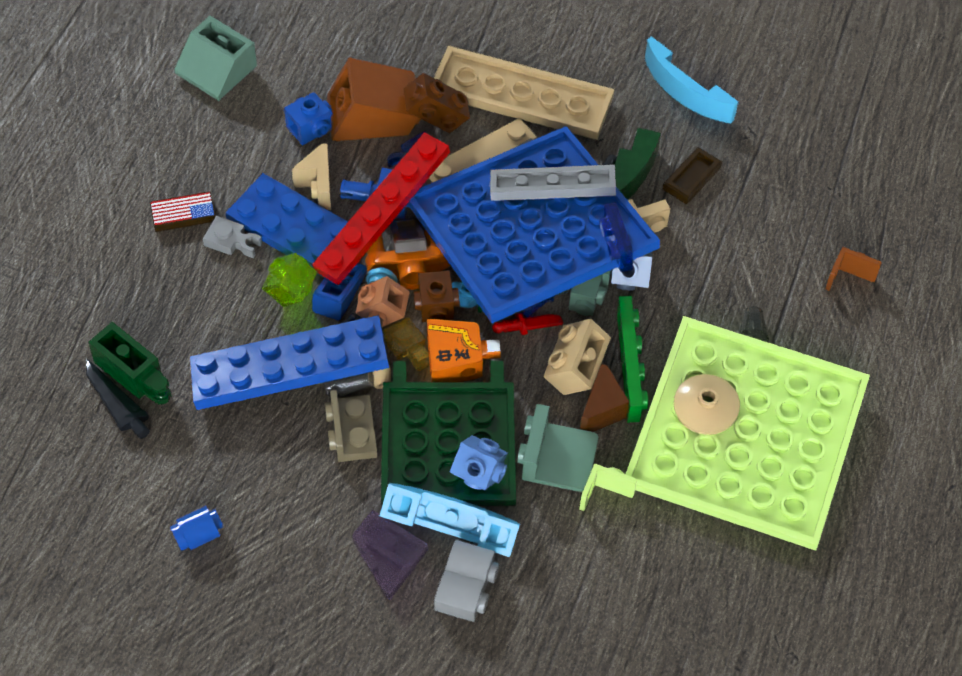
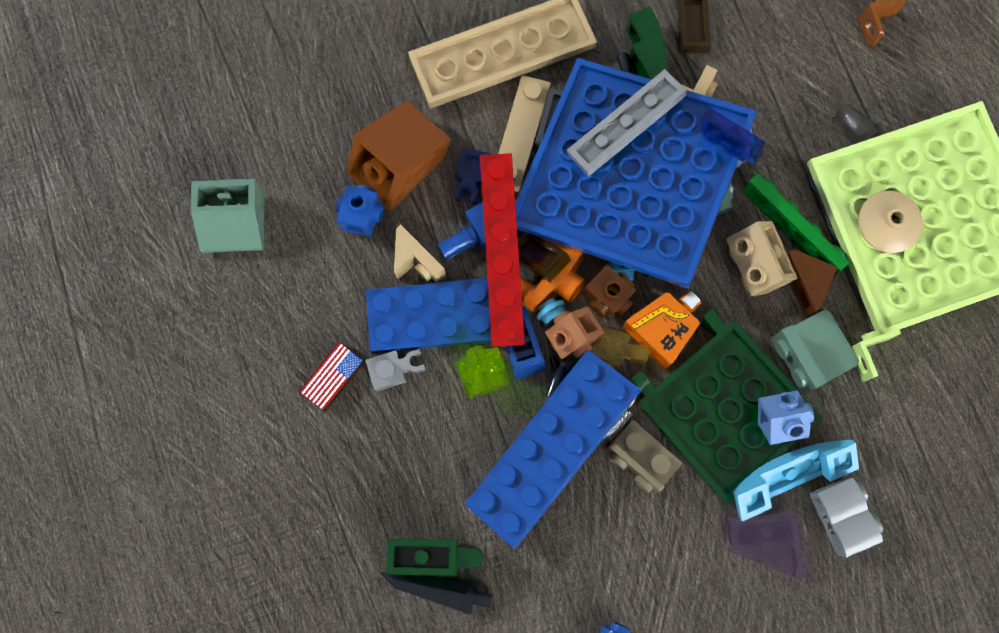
camera: 35 degrees left, 20 degrees up
(436, 103) = (454, 116): reddish brown brick -> none

